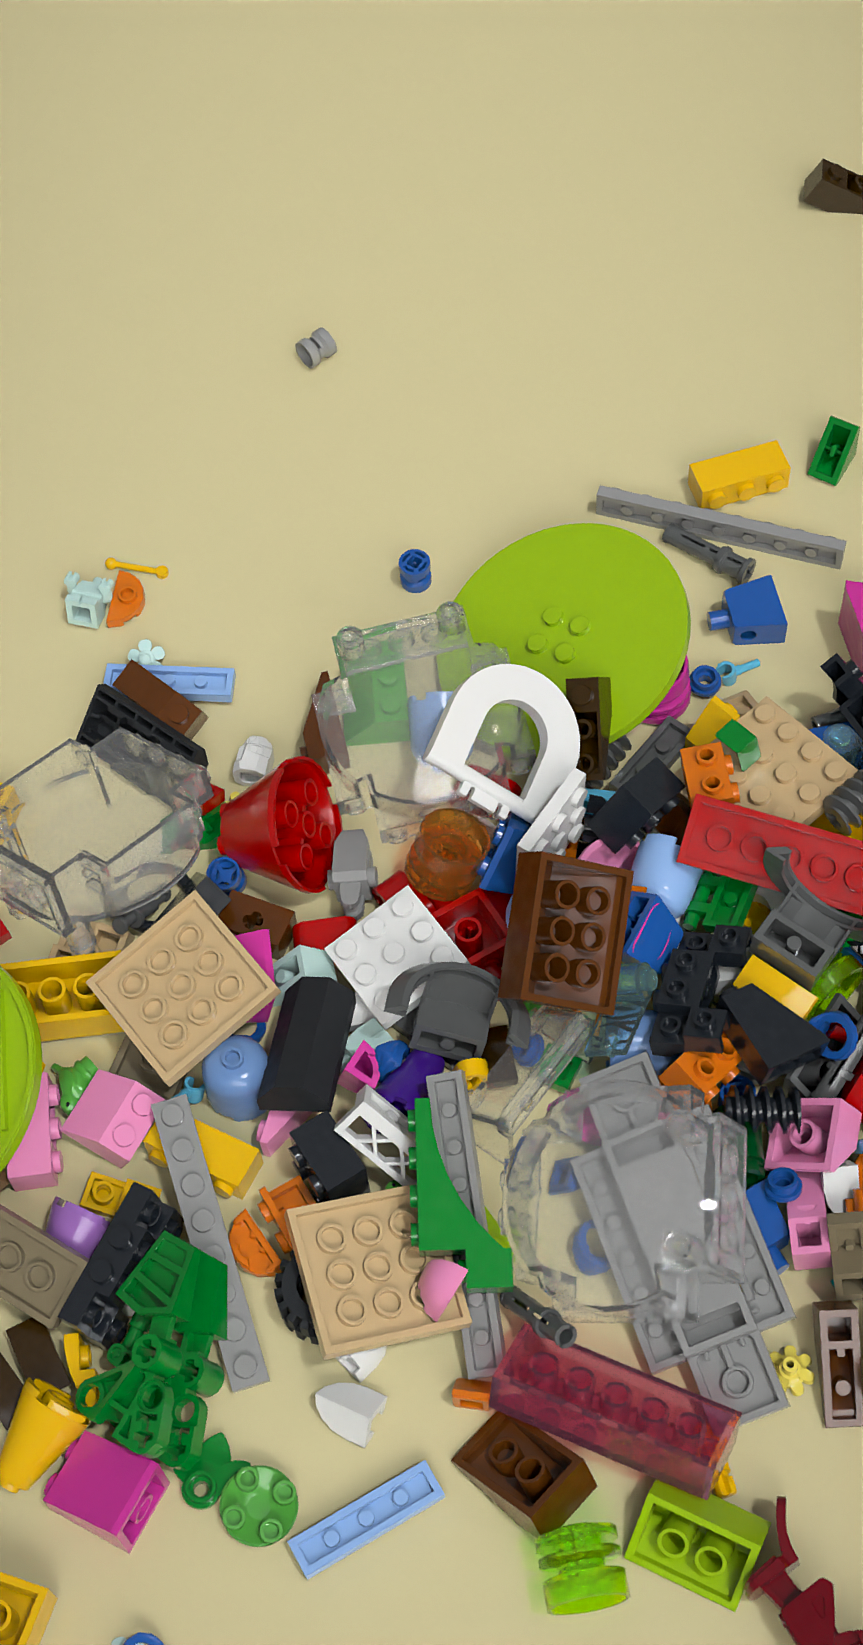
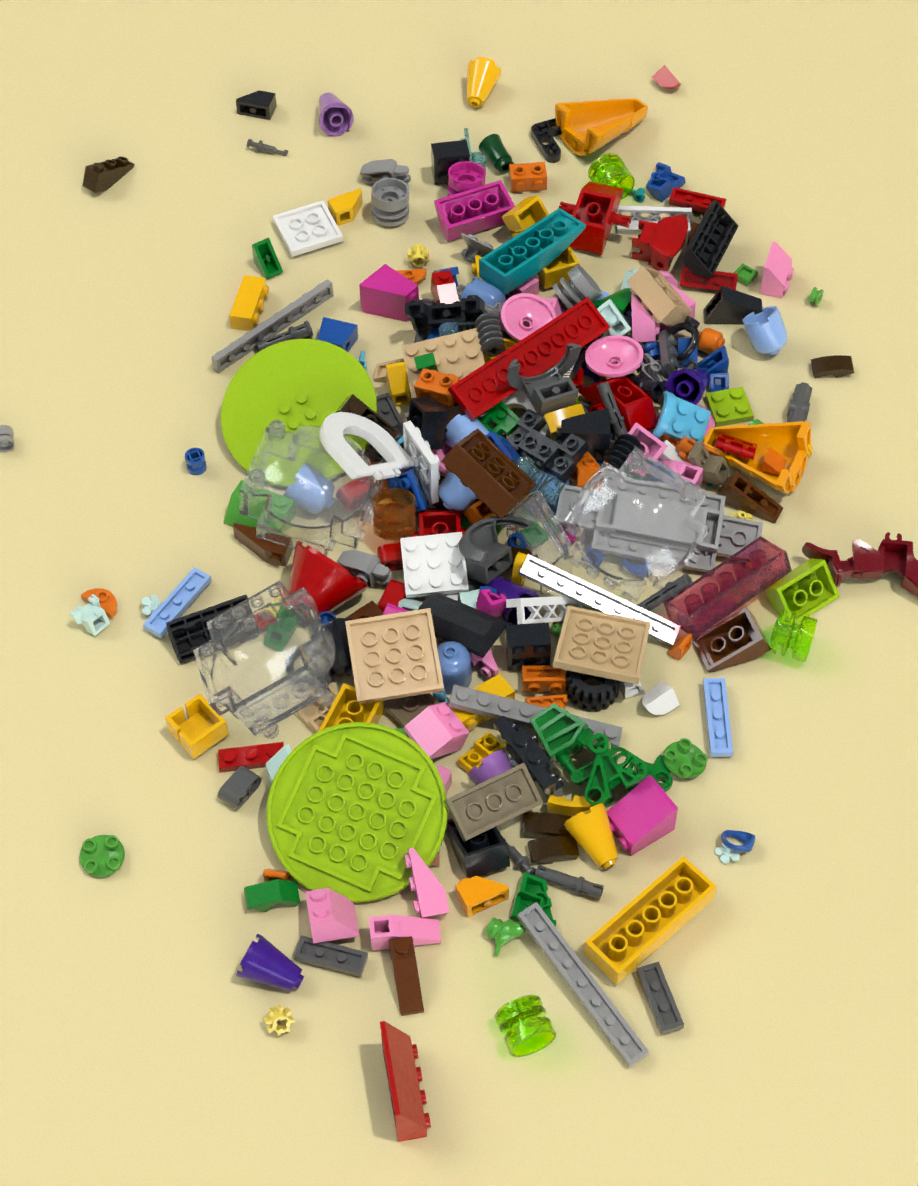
camera: 65 degrees left, 5 degrees down
(160, 699) = (189, 604): reddish brown slope -> none
(161, 571) = (95, 578): yellow hinge -> none
(253, 760) = (257, 582): white rock -> none
(439, 1284) = (632, 617): bright pink brick -> none
(444, 1221) = (594, 599): green arch -> none
(823, 1022) = (595, 402): blue piece -> none

